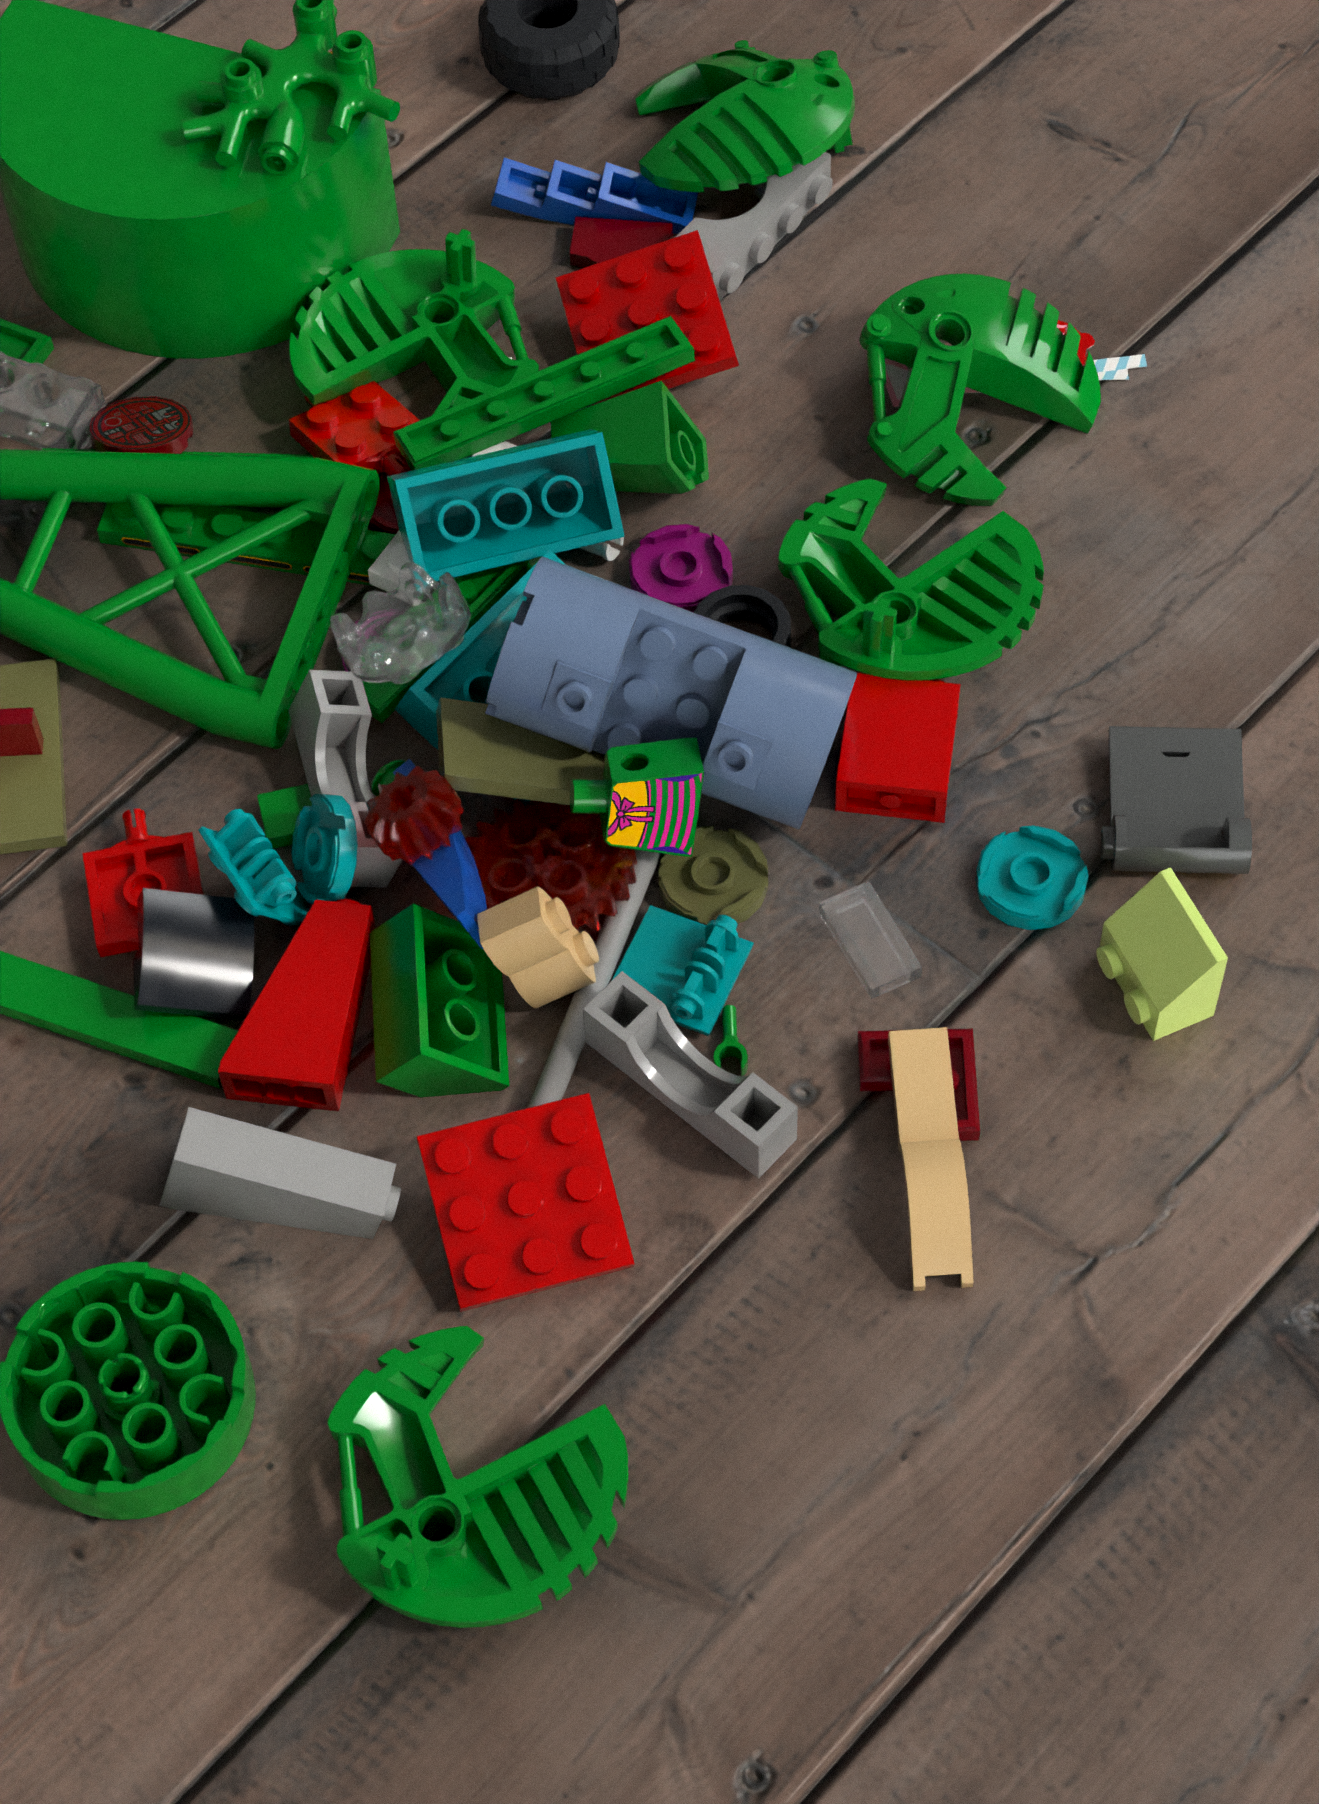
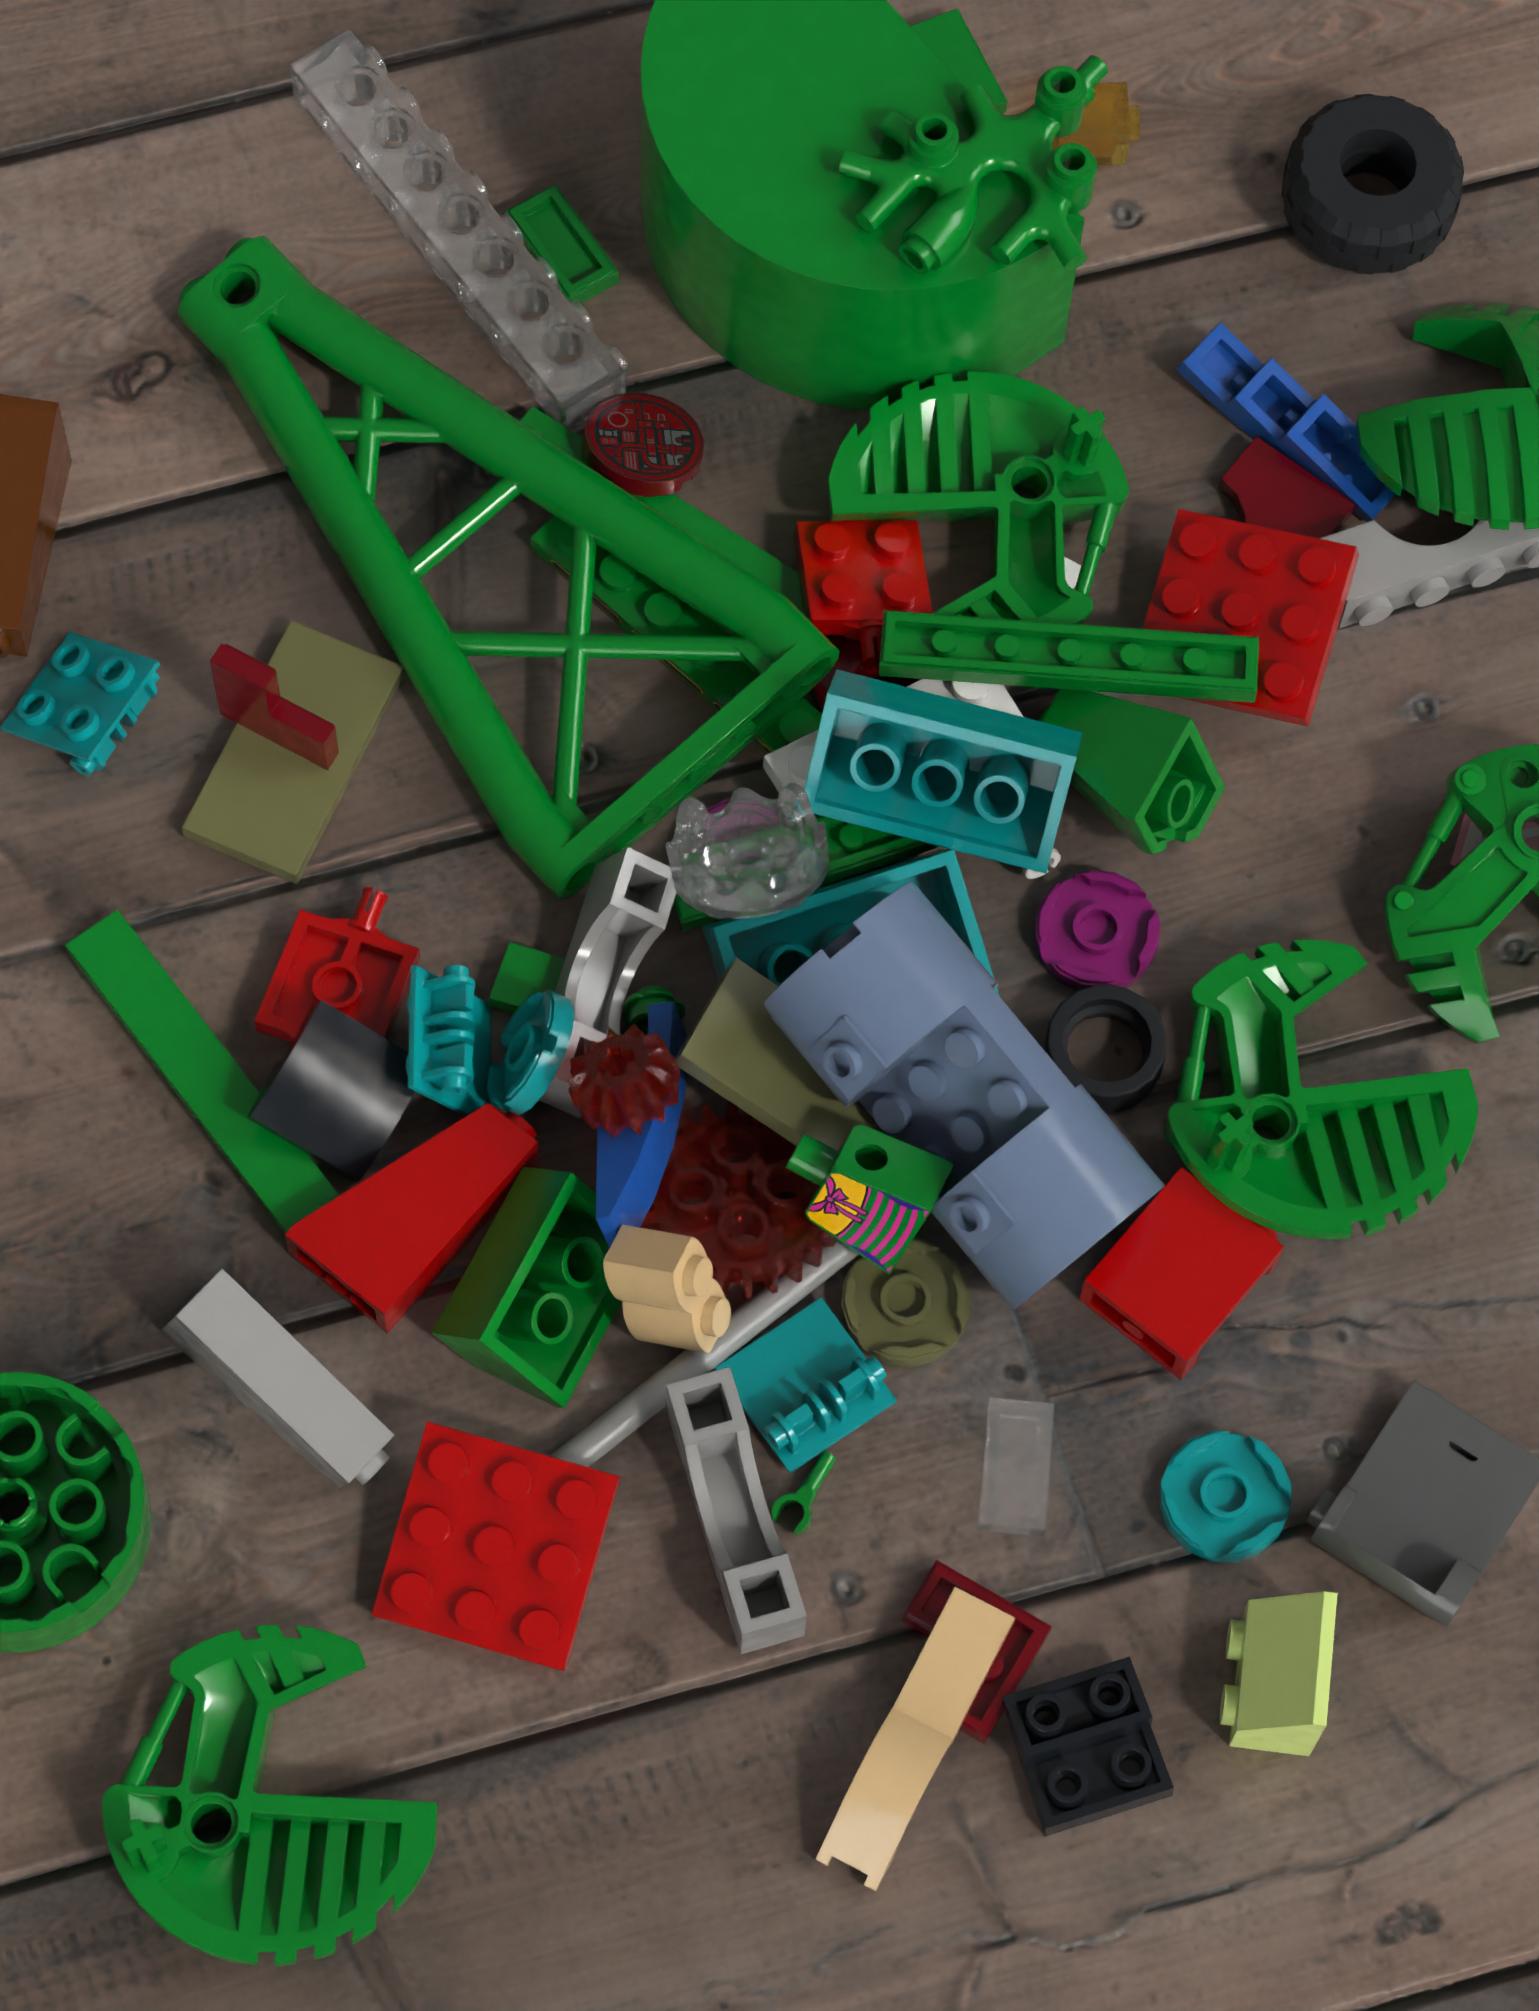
camera: 25 degrees right, 10 degrees up
(1055, 1094) = (1087, 1746): none -> black slope

